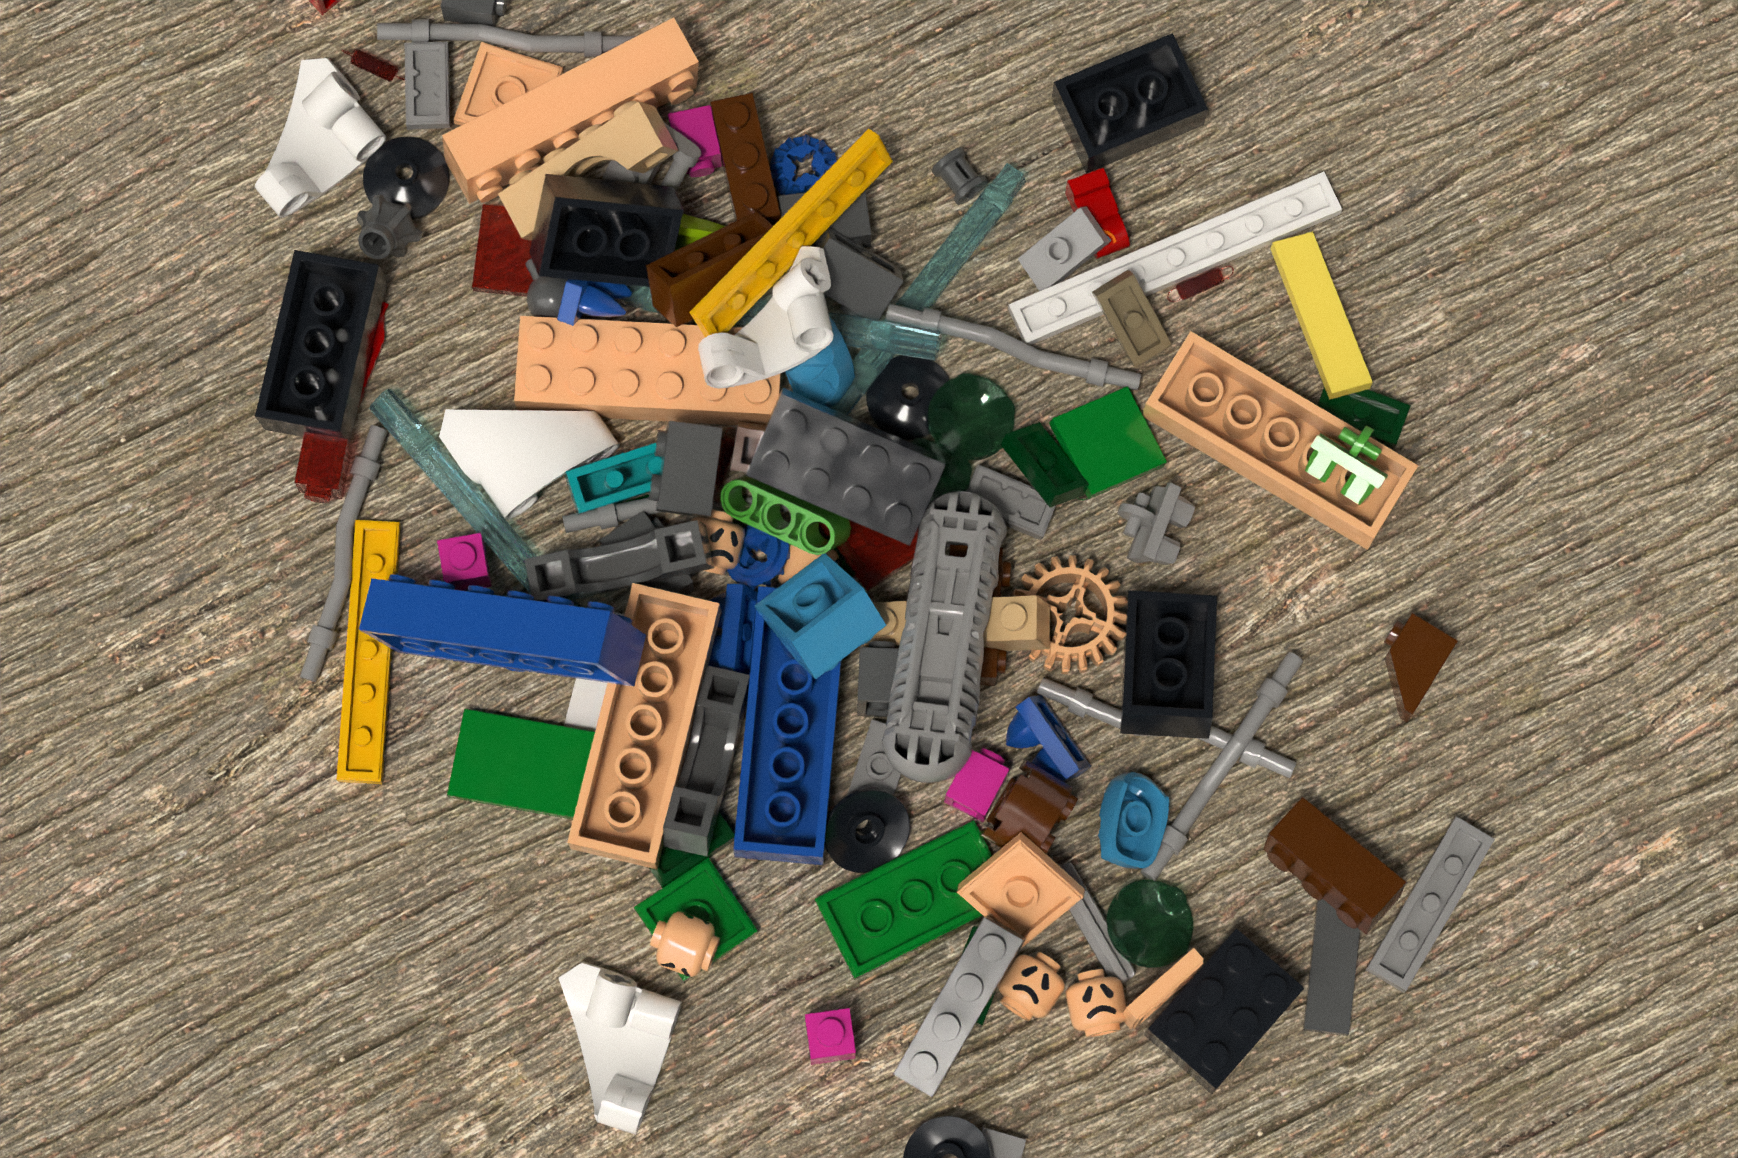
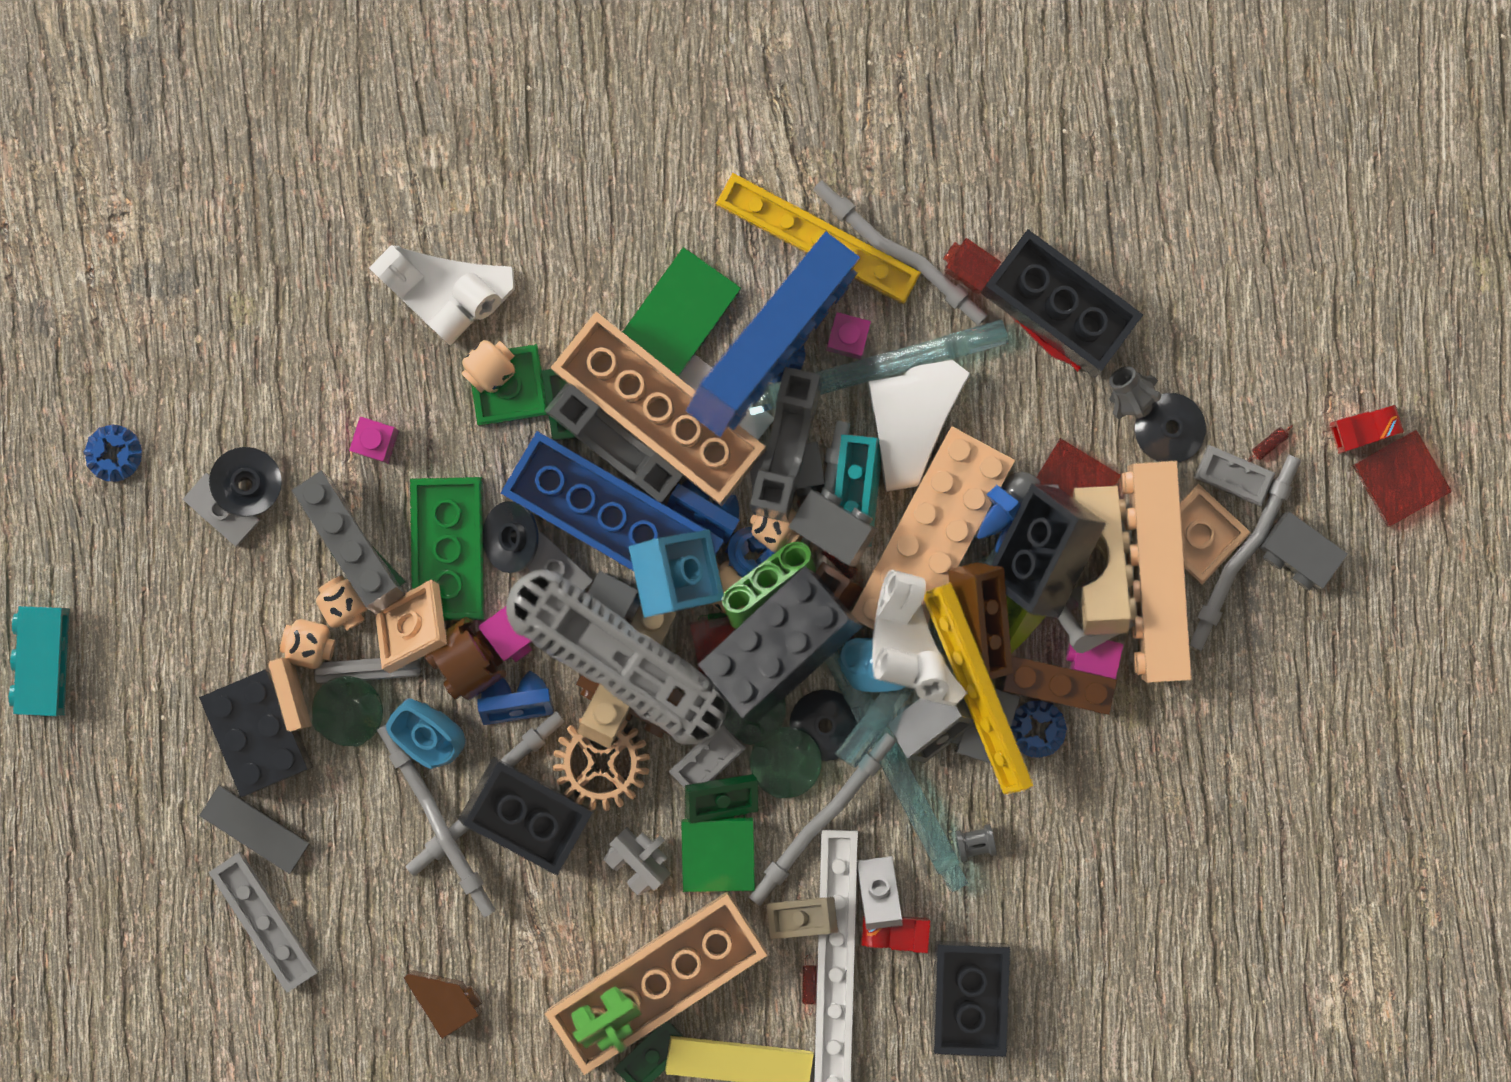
camera: 120 degrees right, 10 degrees up
(321, 140) = (1227, 376): white panel -> none
(1333, 866) = (320, 863): reddish brown brick -> none

